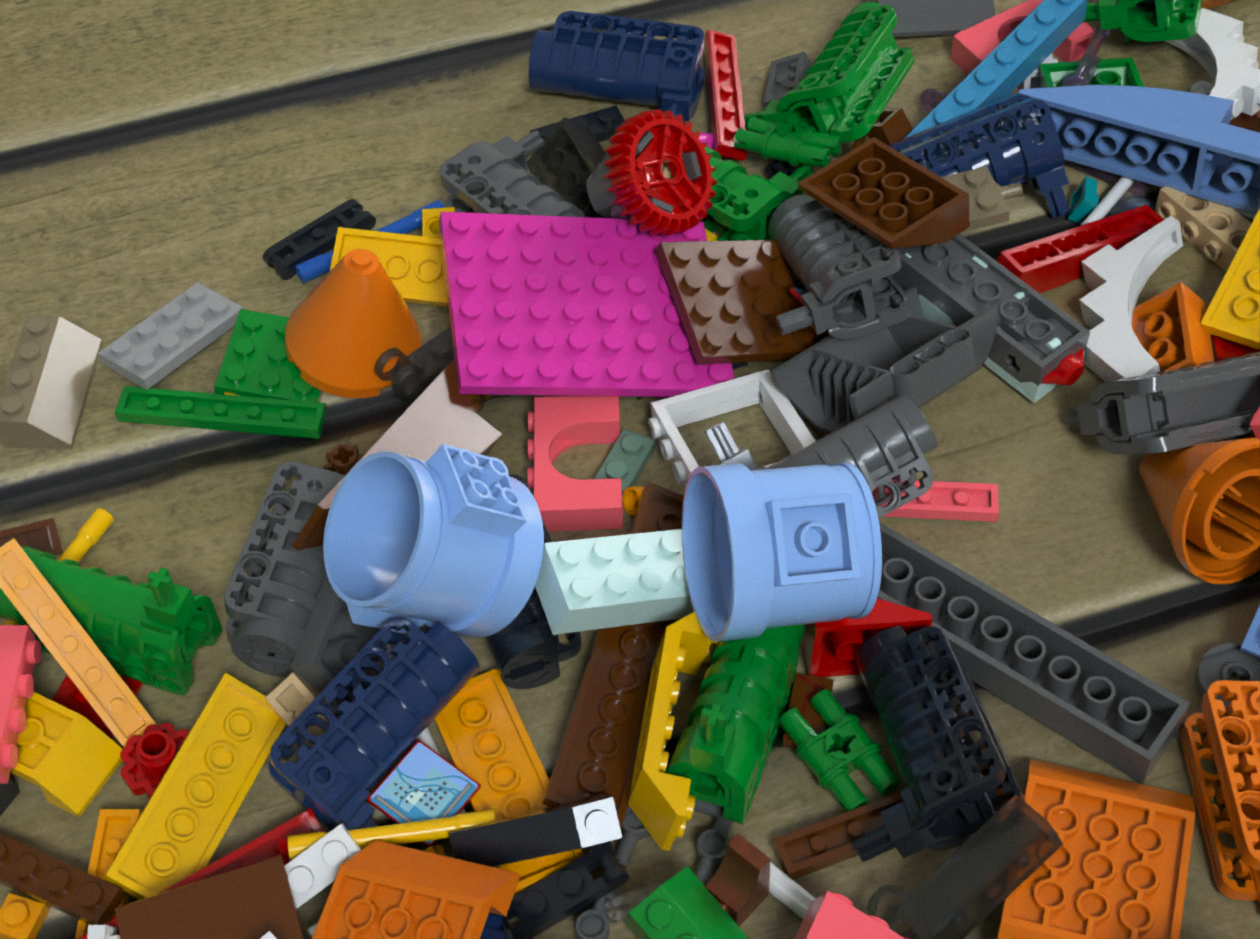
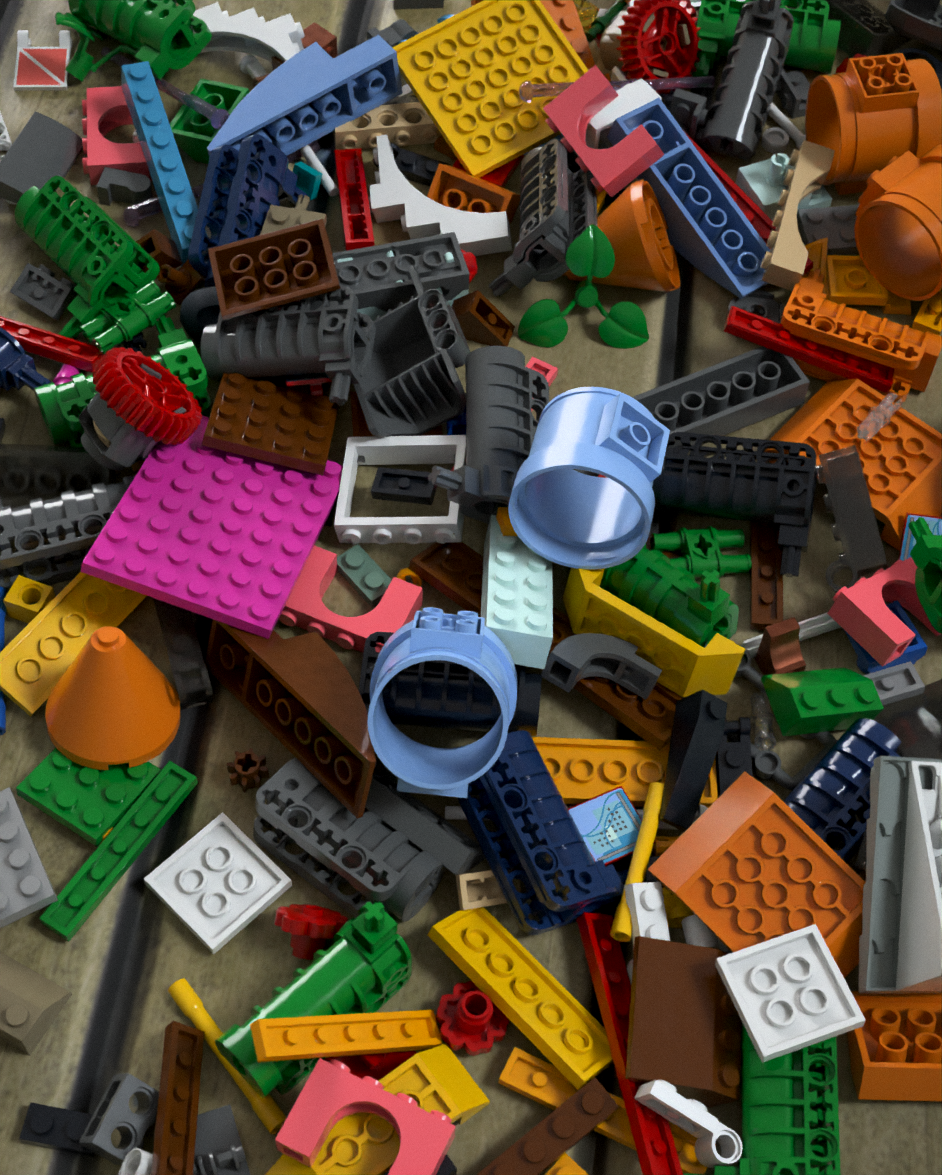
camera: 70 degrees left, 5 degrees up
(196, 570) = (308, 927): none -> red plant
(213, 497) = (218, 882): none -> white plate
(609, 679) = (603, 657): none -> dark grey arch
(740, 429) = (403, 486): none -> black plate
(952, 67) = (123, 187): none -> dark grey leg
(1012, 421) = (482, 320): none -> reddish brown slope
(1131, 449) = (586, 256): none -> green plant
(1140, 851) = (879, 417): none -> clear axle
(1183, 690) = (777, 338): none -> red tile
(1188, 271) = (414, 165): none -> black hinge

